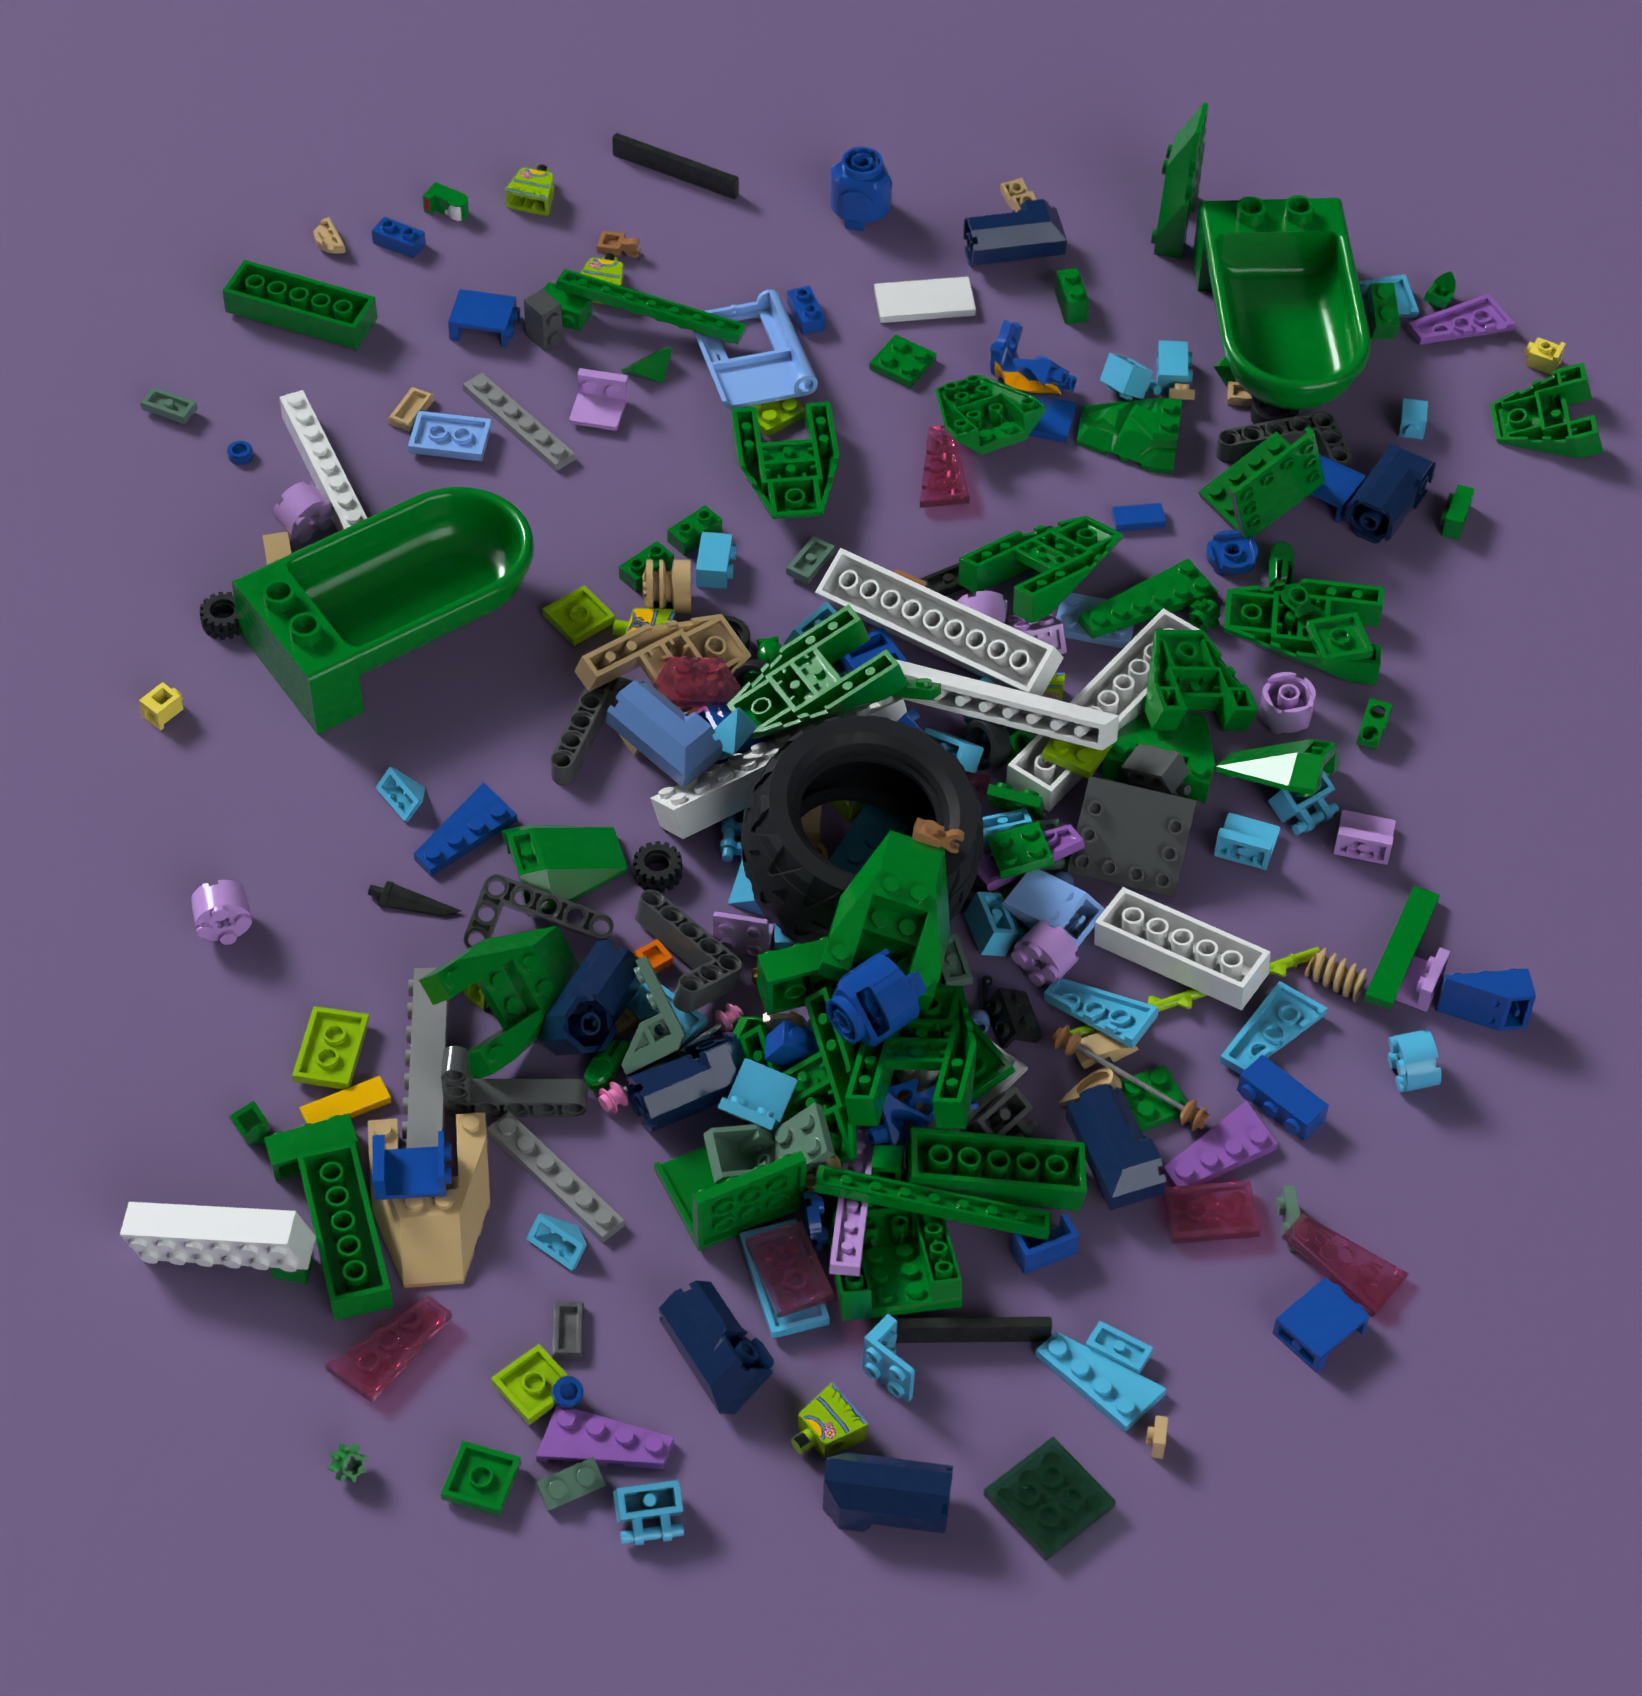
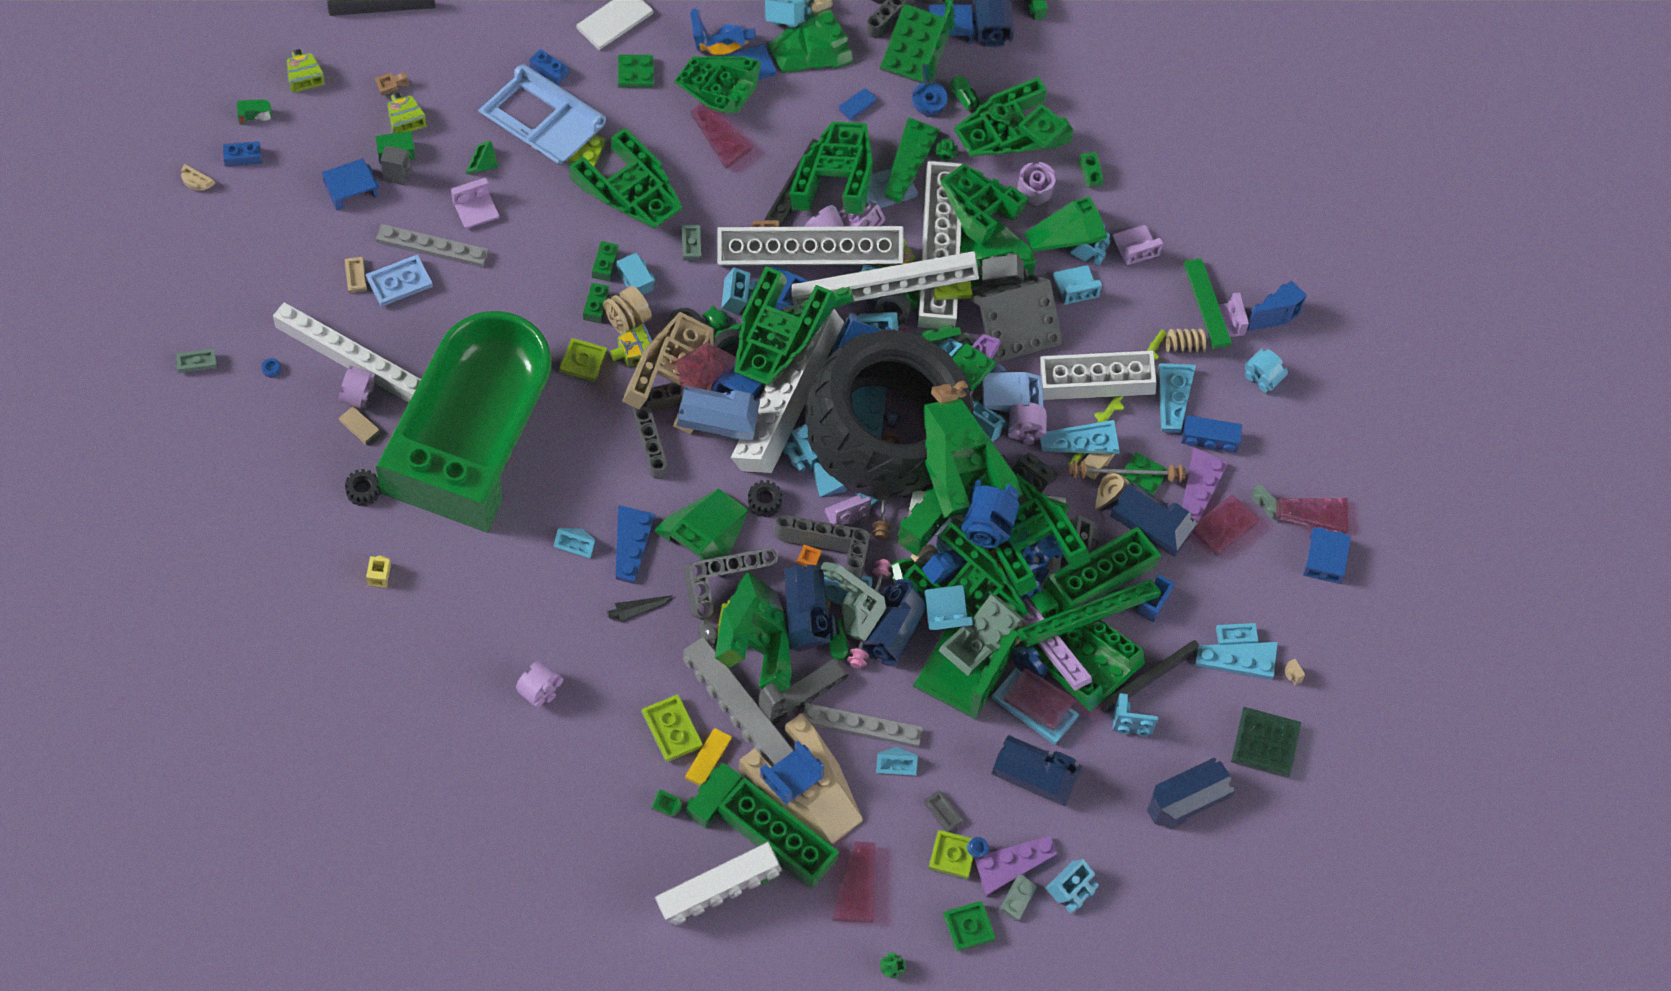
camera: 40 degrees left, 10 degrees up
(300, 304) = (223, 240): green brick -> none
(650, 306) = (456, 118): green plate -> none
(734, 732) = (759, 387): medium azure slope -> none
(829, 1424) = (1125, 774): lime torso -> none

